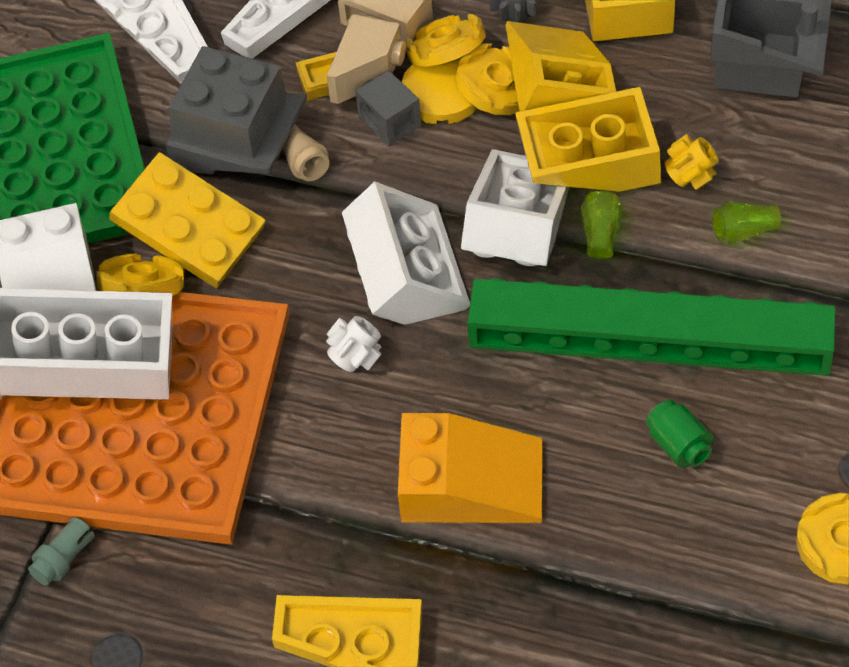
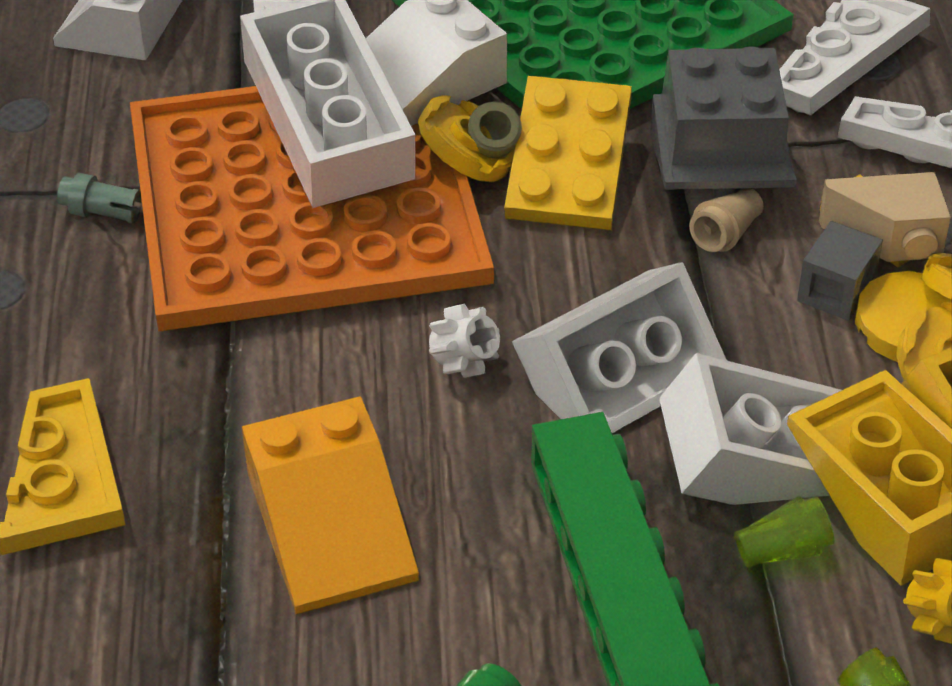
camera: 65 degrees right, 10 degrees down
(147, 254) = (501, 123): none -> olive piece

